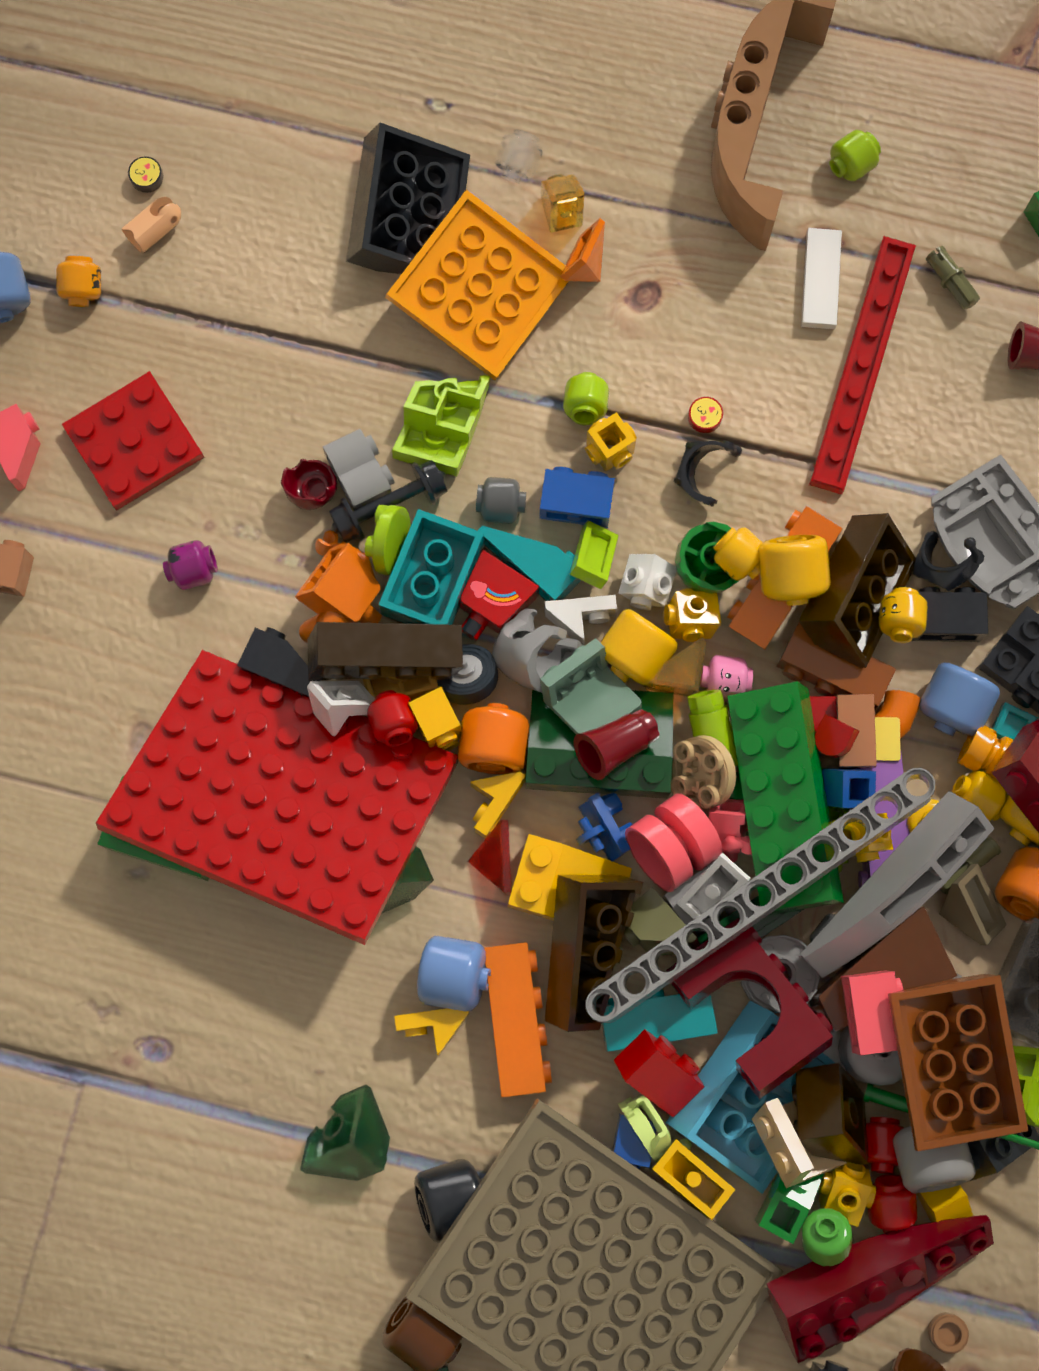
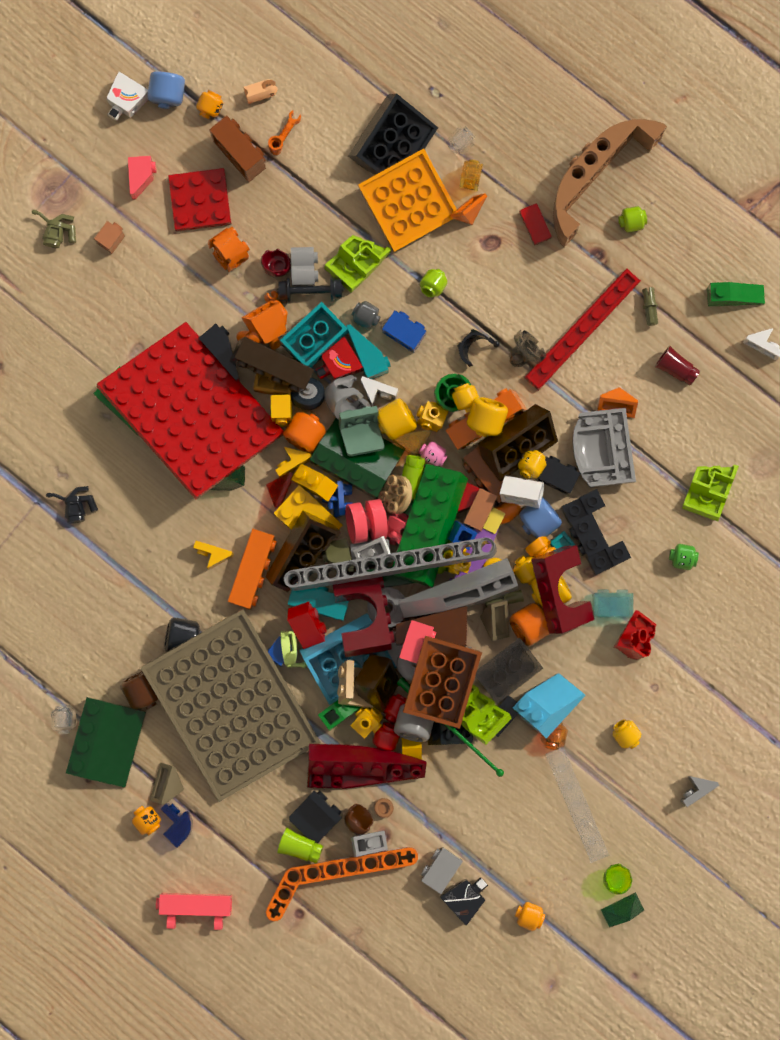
camera: 25 degrees right, 5 degrees up
(145, 174) = (268, 62): tile -> none
(154, 1059) = (74, 508): none -> black piece
(158, 326) = (238, 148): none -> dark orange brick
(190, 565) = (199, 276): magenta head -> none
(218, 290) = (277, 141): none -> orange brick
(220, 495) = (229, 249): none -> orange brick
(337, 700) = (239, 378): white slope -> none
(352, 1140) = (148, 589): clear green slope -> none
(388, 537) = (301, 308): lime tile -> none
(392, 718) = (259, 399): red head -> none
(452, 973) = (231, 533): medium blue head -> none
(552, 817) = (314, 482): none -> yellow brick
(594, 554) = (398, 364): lime tile -> none
(610, 432) = (436, 305): yellow brick -> none
(615, 742) = (360, 460): dark red plant -> none
(647, 581) = (417, 389): white brick -> none
(693, 1179) = (298, 680): yellow slope -> none
(702, 234) = (535, 224): none -> red tile
(705, 414) = (490, 318): light yellow tile -> none
(793, 433) = (527, 348): none -> clear smoke tile
(821, 278) = (584, 275): white tile -> none
(826, 1237) = (346, 735): bright green head -> none
(835, 737) = (467, 507): red tile -> none
(913, 667) = (522, 491): none -> white piece
(950, 576) = (564, 456): black helmet -> none
(979, 448) = (618, 399): none -> orange slope

